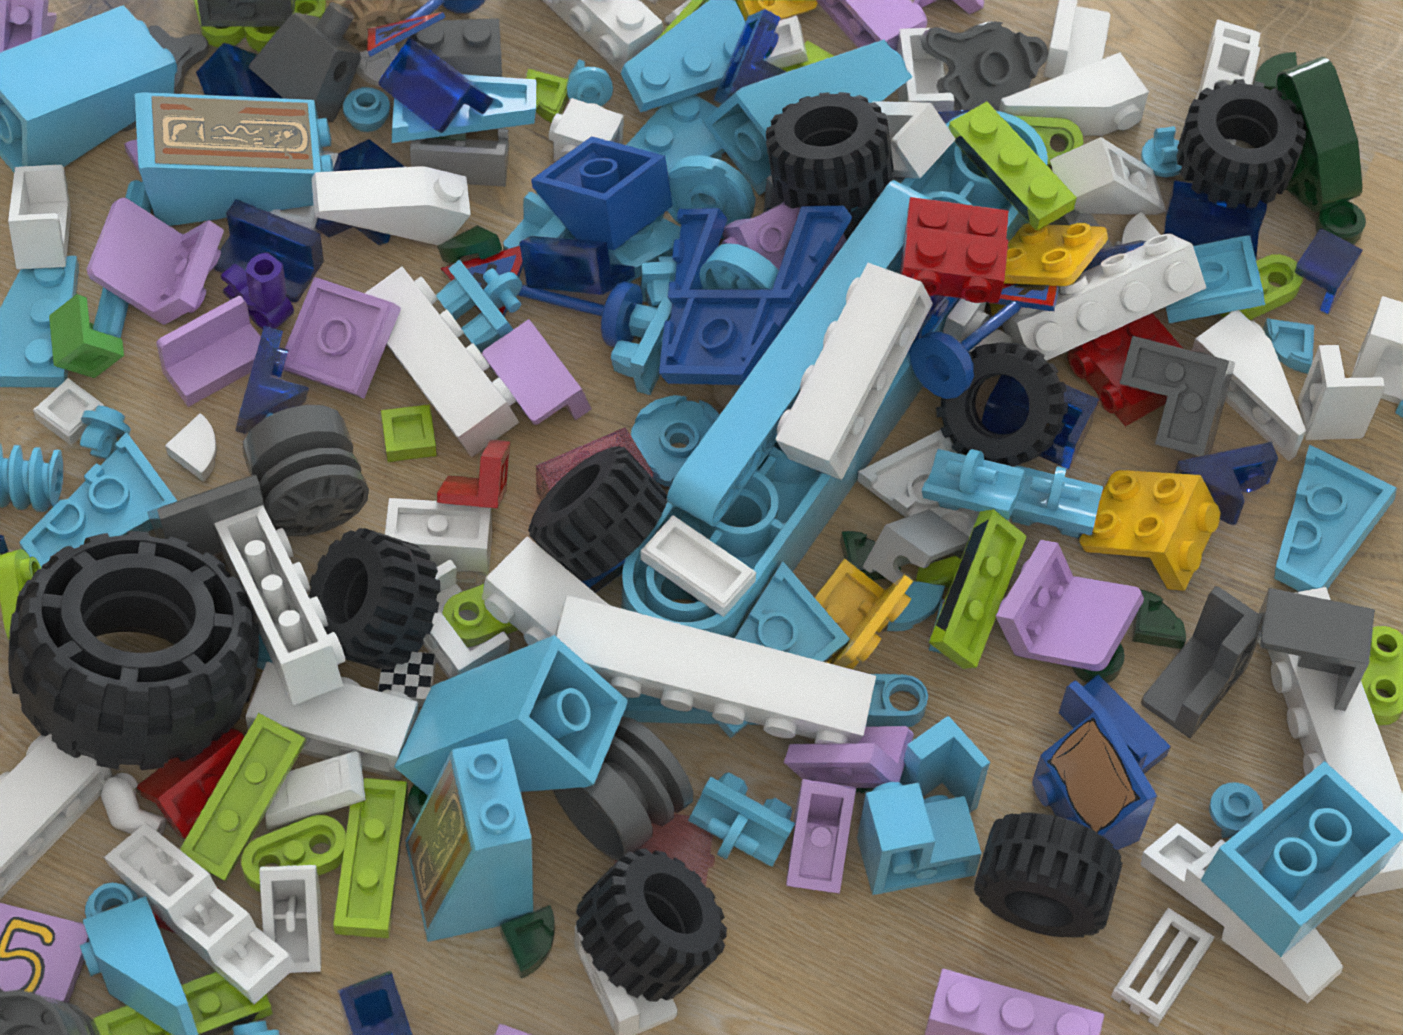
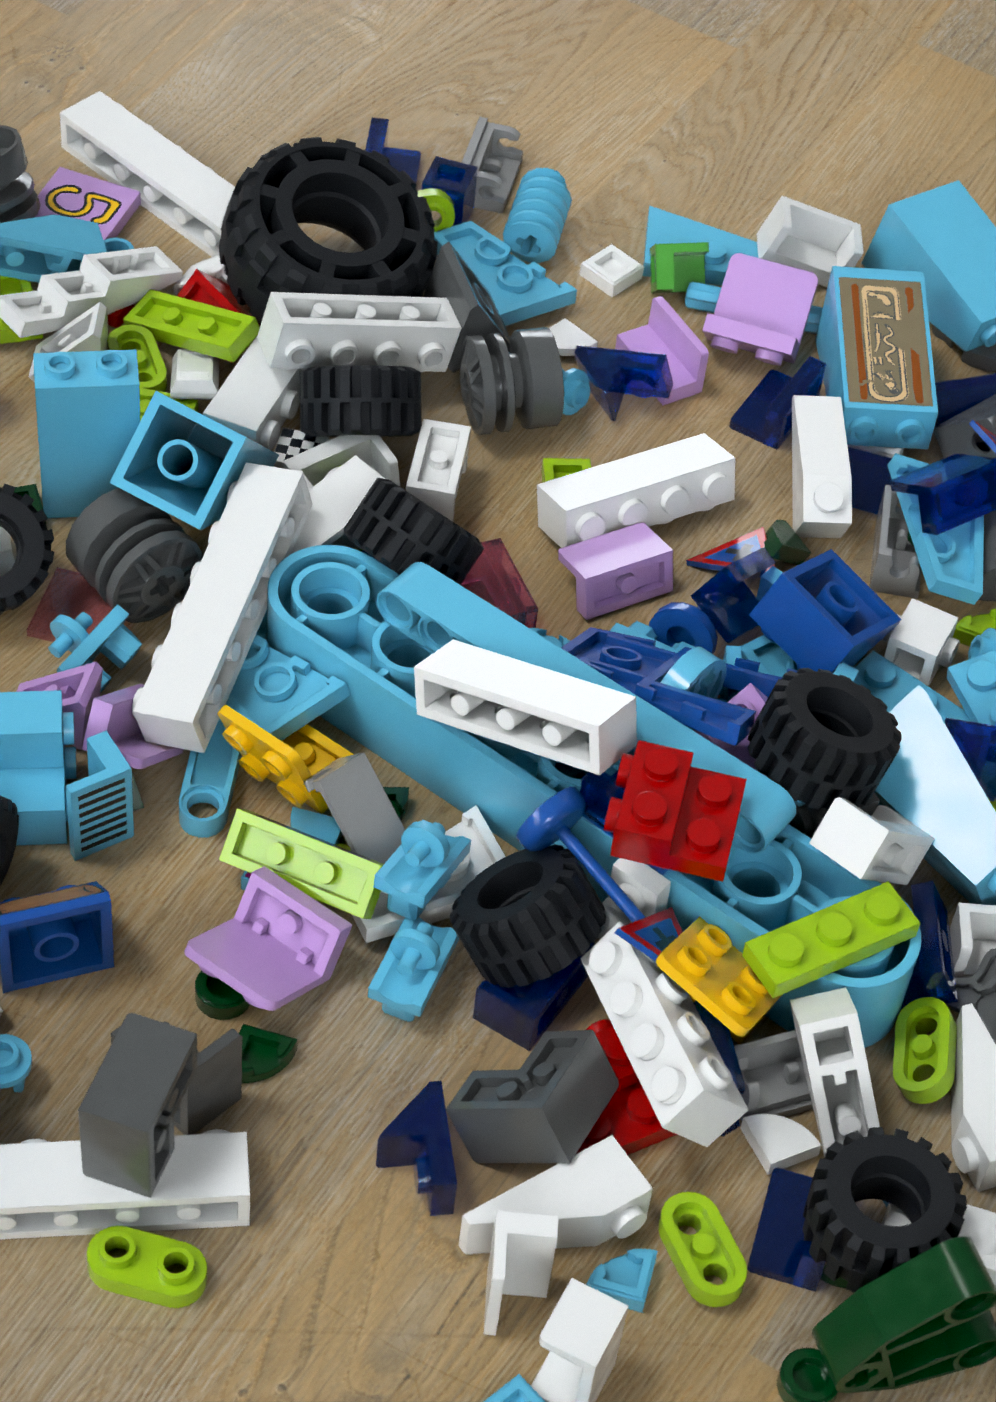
camera: 95 degrees right, 10 degrees down
(102, 430) = (588, 276): medium azure plate -> none
(262, 289) = (721, 376): dark purple bar -> none
(340, 337) = (665, 423): lavender tile -> none
(465, 293) = (705, 535): medium azure hips -> none
(487, 489) = (489, 499): red panel -> none
(698, 566) = (334, 594): white tile -> none
(1138, 735) = (129, 975): blue panel -> none
(1155, 518) = (371, 1065): yellow bracket -> none
(1230, 281) = (707, 1186): medium azure tile -> none
(1329, 264) = (721, 1325): clear blue panel -> none
(1329, 520) = (363, 1259): medium azure wing -> none

